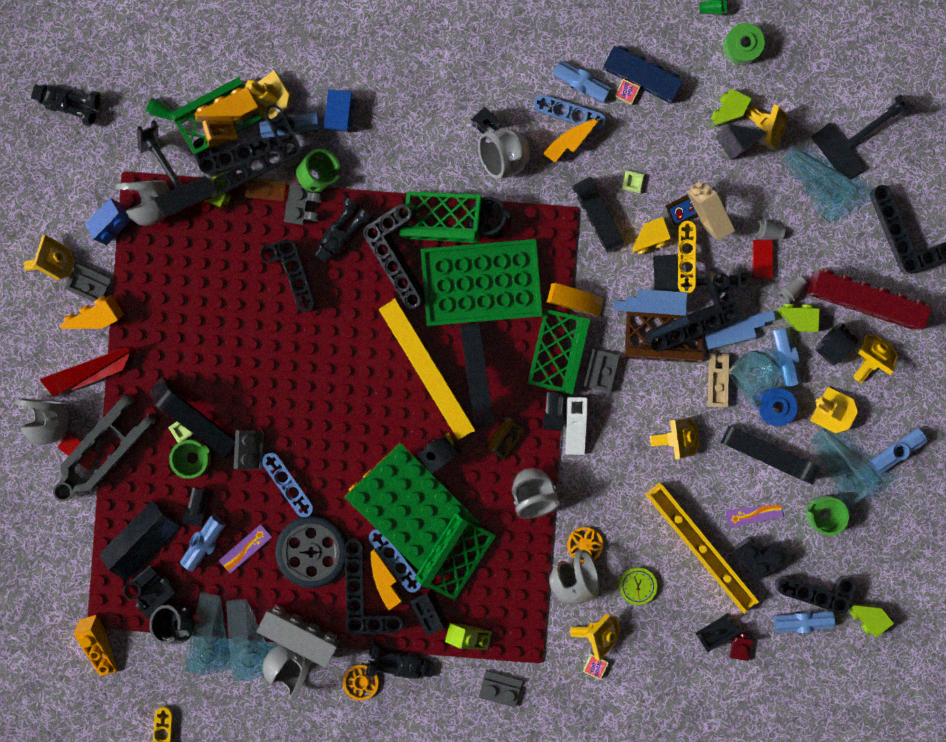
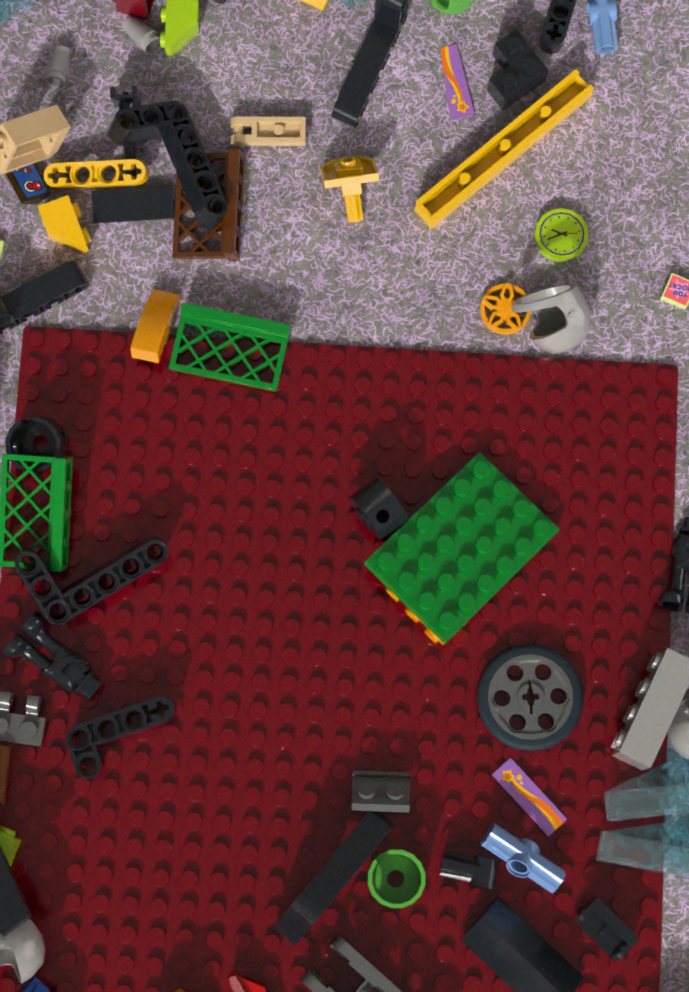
camera: 95 degrees left, 10 degrees down
(142, 581) = (583, 949): black piece -> none
(163, 624) = (643, 915): black piece -> none
(179, 432) = (354, 896): yellowish green tile -> none
(285, 486) = (433, 736): medium blue beam -> none
(359, 595) = (590, 623): black beam -> none
(384, 579) = (567, 587): light orange slope -> none
(392, 562) = (535, 571): medium blue beam -> none
(426, 369) = (257, 532): yellow tile -> none
(429, 612) = (612, 522): black hinge -> none
(440, 552) = (520, 499): green fence -> none
(468, 637) = (644, 466): lime slope -> none
(477, 375) = (265, 453): black beam -> none
(481, 282) = (130, 457): green plate -> none
(505, 437) = (355, 420): dark brown slope -> none
(534, 494) = (433, 371): light grey piece -> none
(553, 416) = (324, 352): black piece -> none
(575, 425) = (334, 322): white slope -> none
(601, 370) = (256, 289): dark grey plate -> none
(601, 634) = (631, 282): yellow piece -> none
(655, 302) = (159, 215): medium blue piece -> none
(717, 632) = (622, 125): black hinge -> none
(738, 331) = (200, 105): medium blue piece -> none
(741, 647) = (640, 95): dark red bracket -> none
(753, 372) = (254, 79): clear light blue piece -> none
(762, 259) = (98, 76): red tile -> none
(771, 396) = (299, 65): blue piece -> none
(787, 357) = (234, 40): medium blue piece -> none

